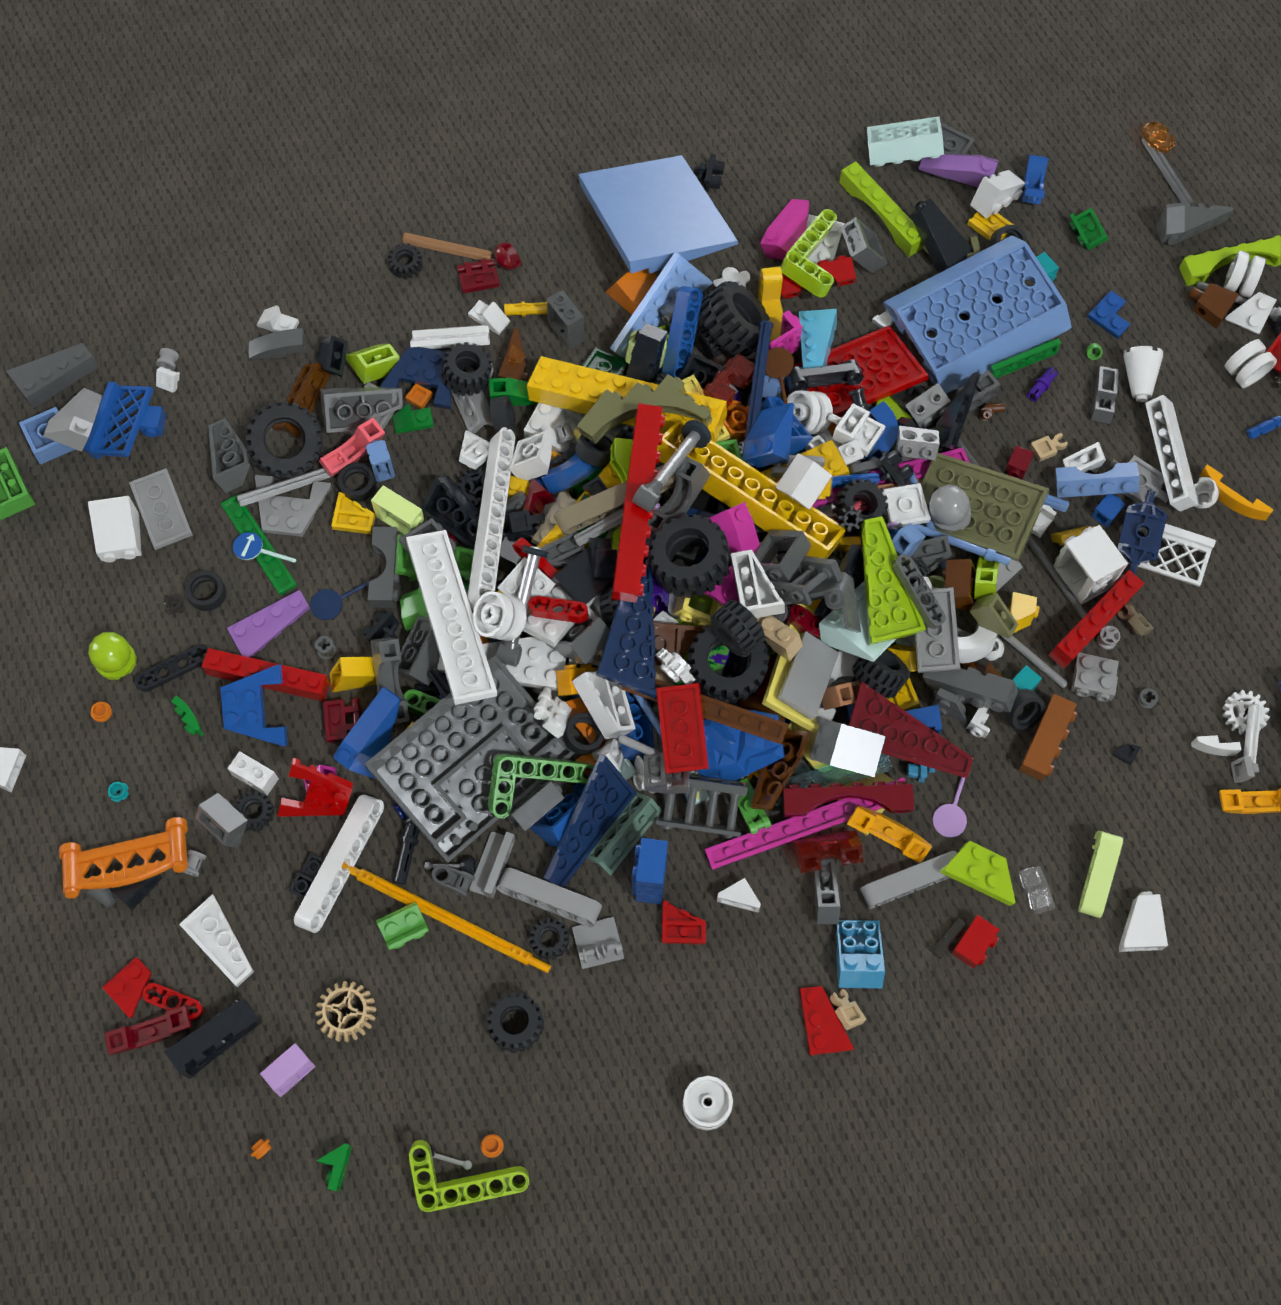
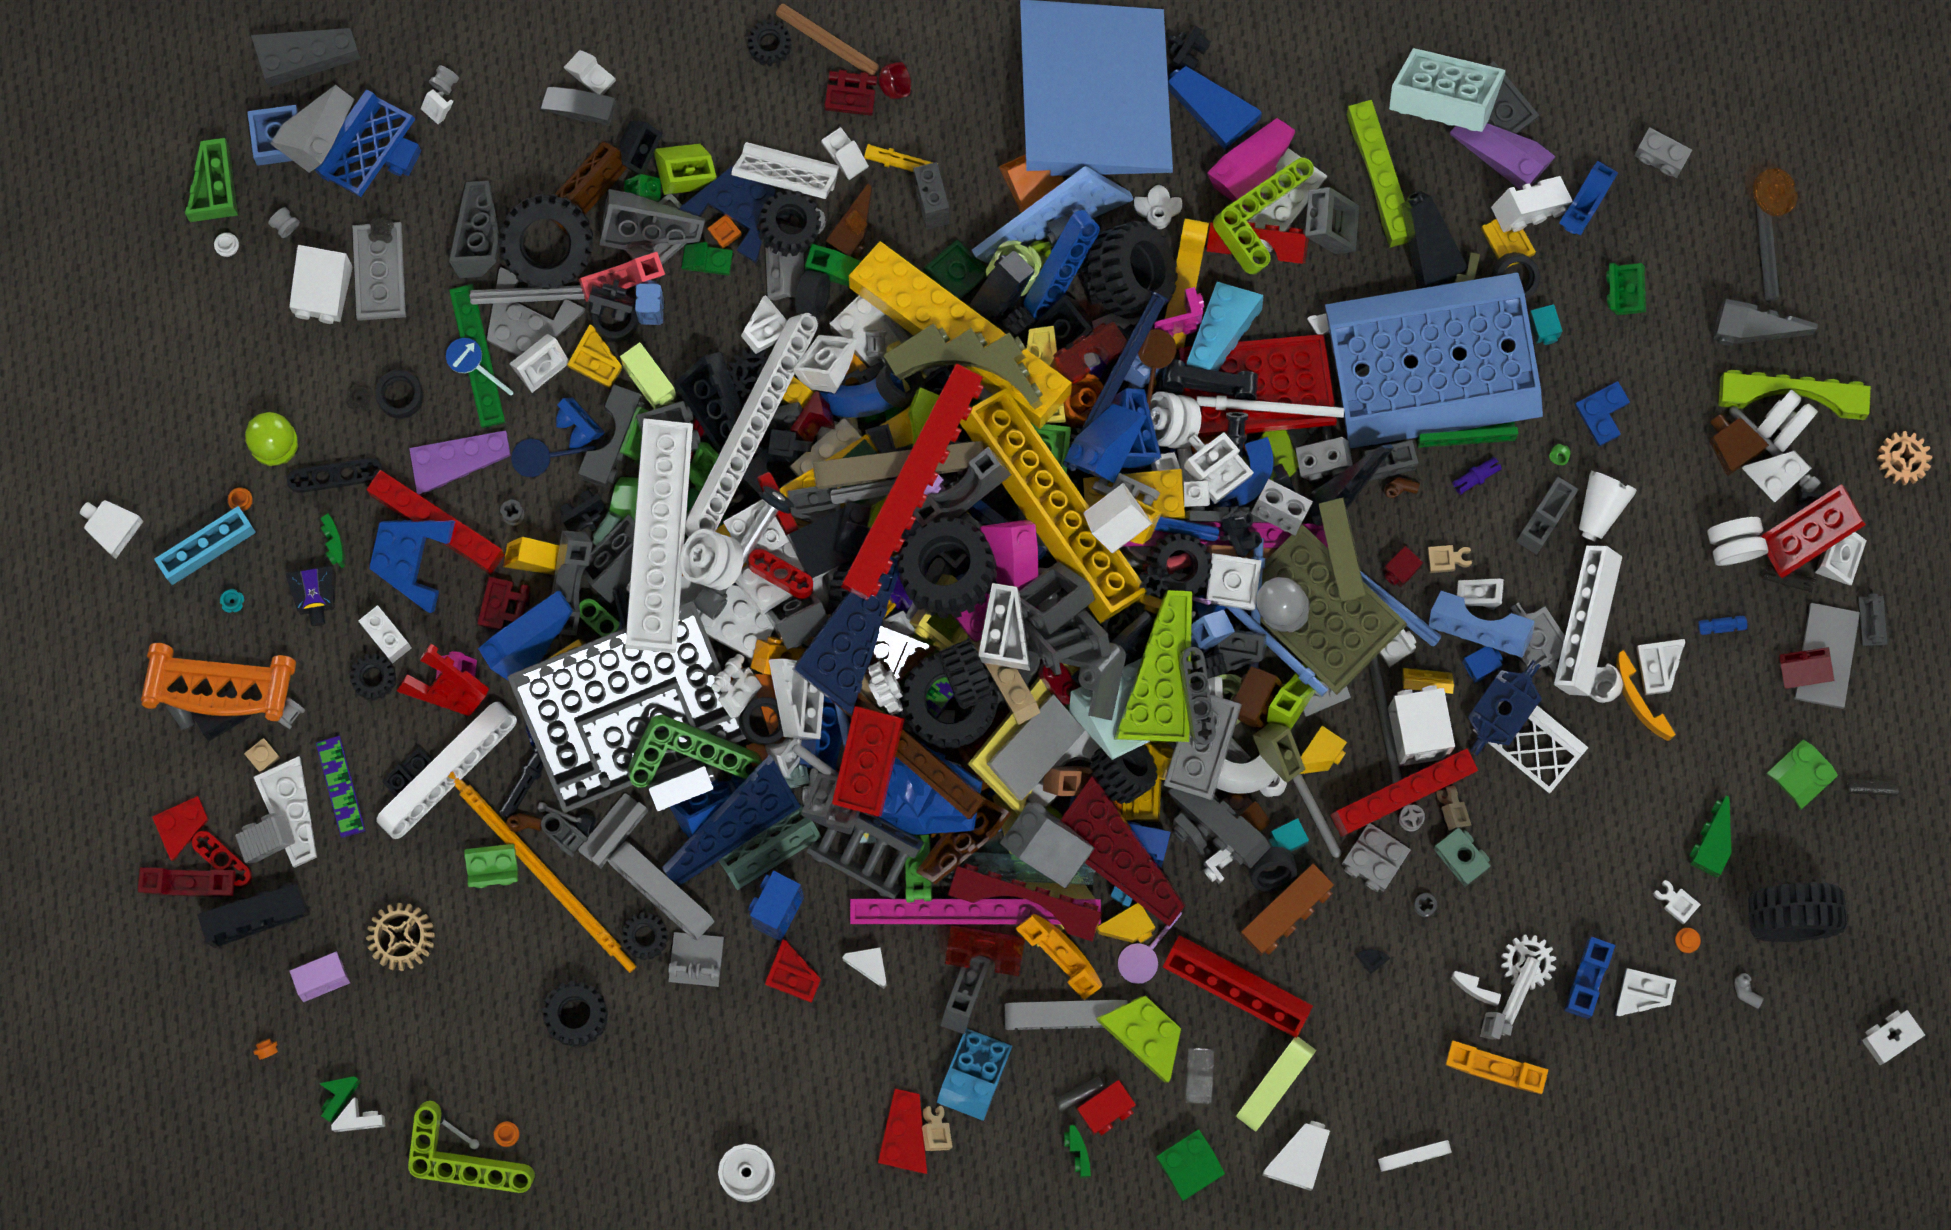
camera: 20 degrees right, 10 degrees up
(32, 527) = (226, 244): none -> white plate
(73, 496) = (284, 222): none -> light grey wheel
(82, 754) = (205, 545): none -> medium azure brick
(150, 472) = (376, 225): none -> clear smoke plate
(181, 905) = (262, 755): none -> tan plate
(183, 761) = (313, 592): none -> torso
(204, 970) = (264, 838): none -> light grey brick
(222, 820) = (334, 679): slope -> none
(255, 908) = (340, 787): none -> tile
(310, 531) = (540, 362): none -> white slope
(341, 466) = (612, 297): none -> black hips
(346, 381) = (644, 186): none -> green bracket
(353, 1183) = (350, 1119): none -> white slope
(362, 568) = (586, 428): none -> blue tile
(405, 629) = (607, 525): none -> sand green cone
(416, 882) = (523, 821): none -> reddish brown arm
(694, 435) = (924, 483): piece -> none
(745, 203) = (1215, 108): none -> blue slope
(839, 389) = (1222, 402): none -> white bar
(933, 791) = (1129, 925): none -> yellow slope
(964, 979) = (1076, 1145): none -> green slope
(977, 454) = (1342, 549): none -> olive slope
(1037, 808) = (1237, 986): none -> red brick
(1061, 963) = (1190, 1165): none -> green slope
(1070, 136) = (1662, 153): none -> light grey brick
(1164, 662) = (1464, 871): none -> sand green brick
(1231, 891) = (1414, 1155): none -> white beam
(1234, 468) = (1659, 664): none -> white wing

